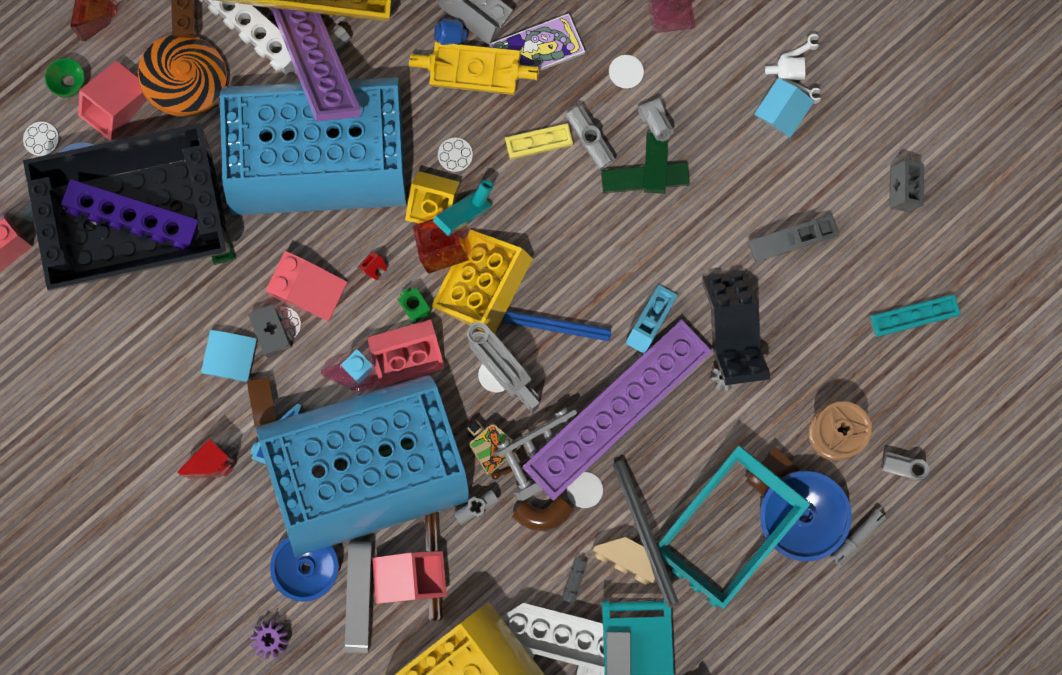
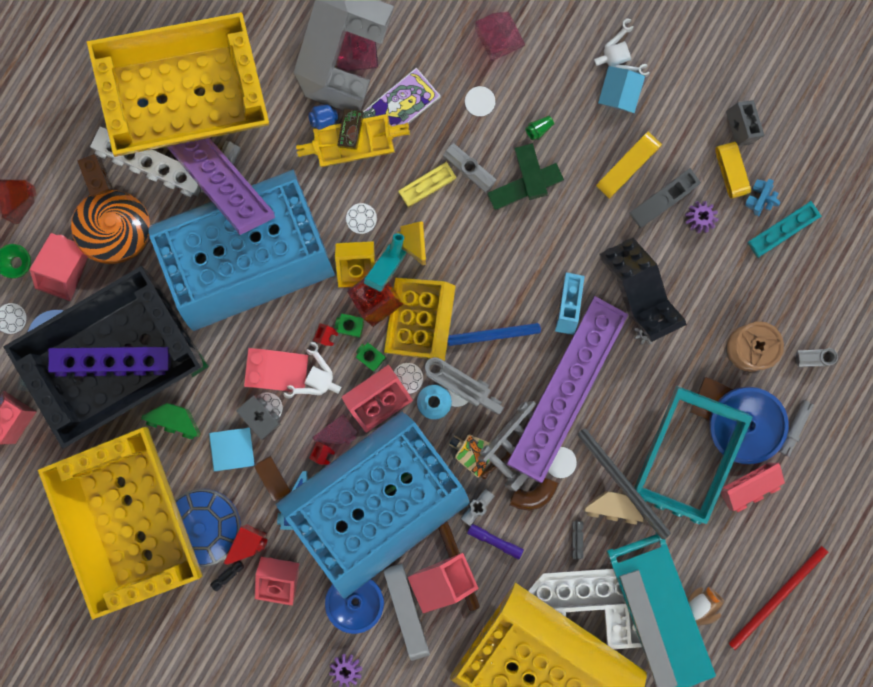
camera: 15 degrees left, 5 degrees up
(59, 395) = (104, 530): none -> yellow slope
(165, 429) = (210, 524): none -> blue dish
(176, 491) = (227, 575): none -> black axle
(177, 302) = (173, 419): none -> green slope
(227, 515) = (276, 580): none -> coral slope
(323, 391) = (320, 453): none -> red tile
(347, 310) = (317, 379): none -> white piece
(357, 366) = (342, 425): medium azure brick -> none
(407, 273) = (358, 325): none -> green brick
(450, 341) = (409, 376): none -> white sticker
(471, 388) = (442, 409): none -> medium azure piece
(473, 542) = (506, 547): none -> dark purple piece
(475, 54) = (350, 129): none -> dark brown tile
(504, 196) = (414, 241): none -> yellow slope
(654, 115) = (516, 131): light grey piece -> none
(682, 119) = (538, 128): none -> green cone
(766, 189) = (629, 164): none -> yellow beam
(788, 586) = (753, 486): none -> coral slope
(827, 280) = (707, 222): none -> medium lavender gear
(878, 233) = (732, 170): none -> yellow beam
(907, 266) = (765, 189): none -> dark azure hips

